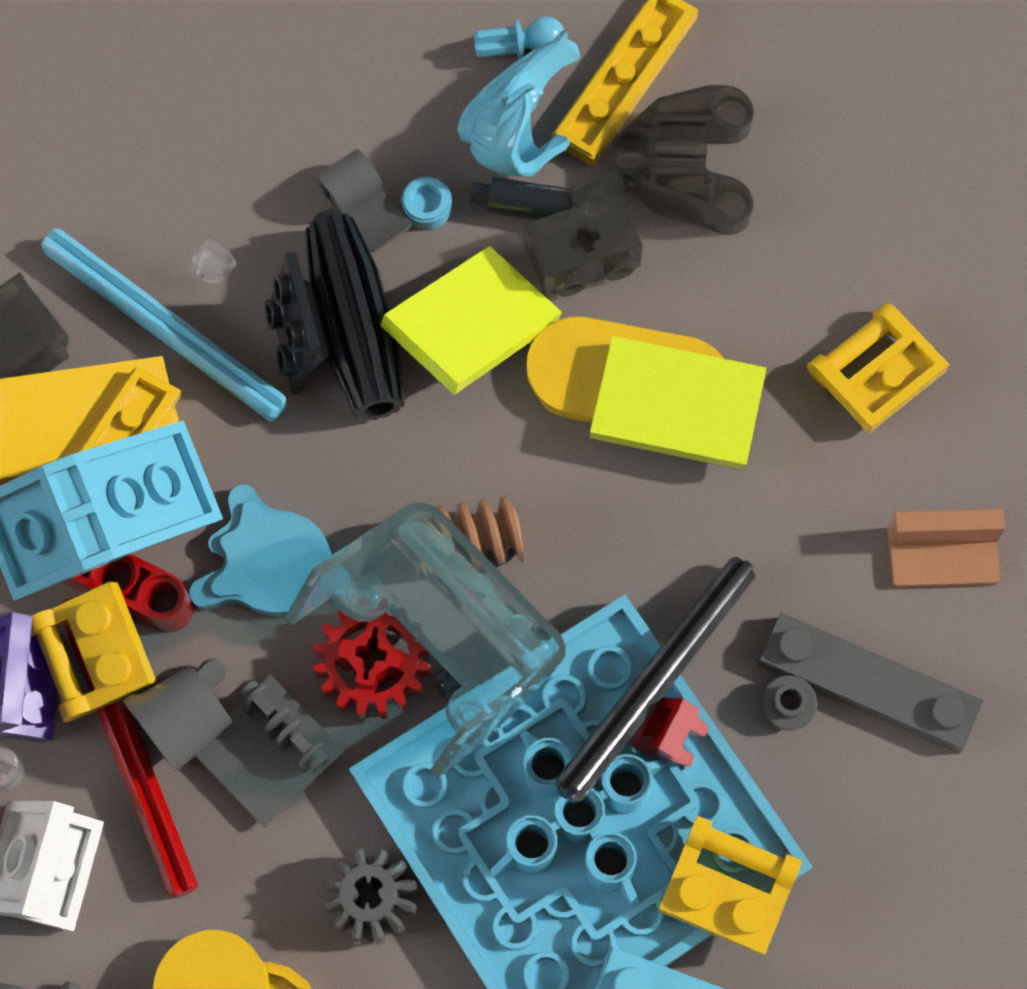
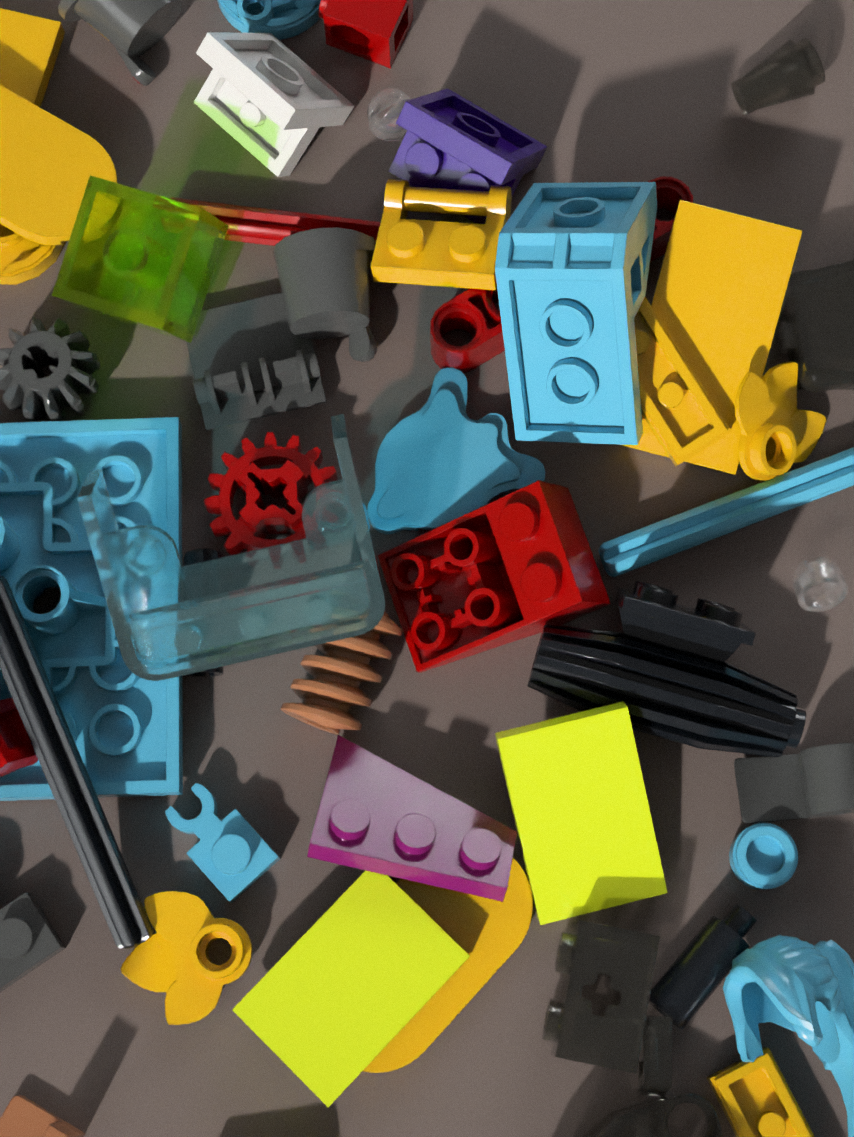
camera: 120 degrees right, 5 degrees up
(112, 344) = (771, 425): none -> yellow plate
(241, 865) = (140, 258): none -> clear neon green brick
(334, 467) = (493, 576): none -> red slope
(553, 428) = (406, 828): none -> wing
(642, 546) = (228, 849): none -> medium azure plate
(733, 533) = (178, 955): none -> yellow plate

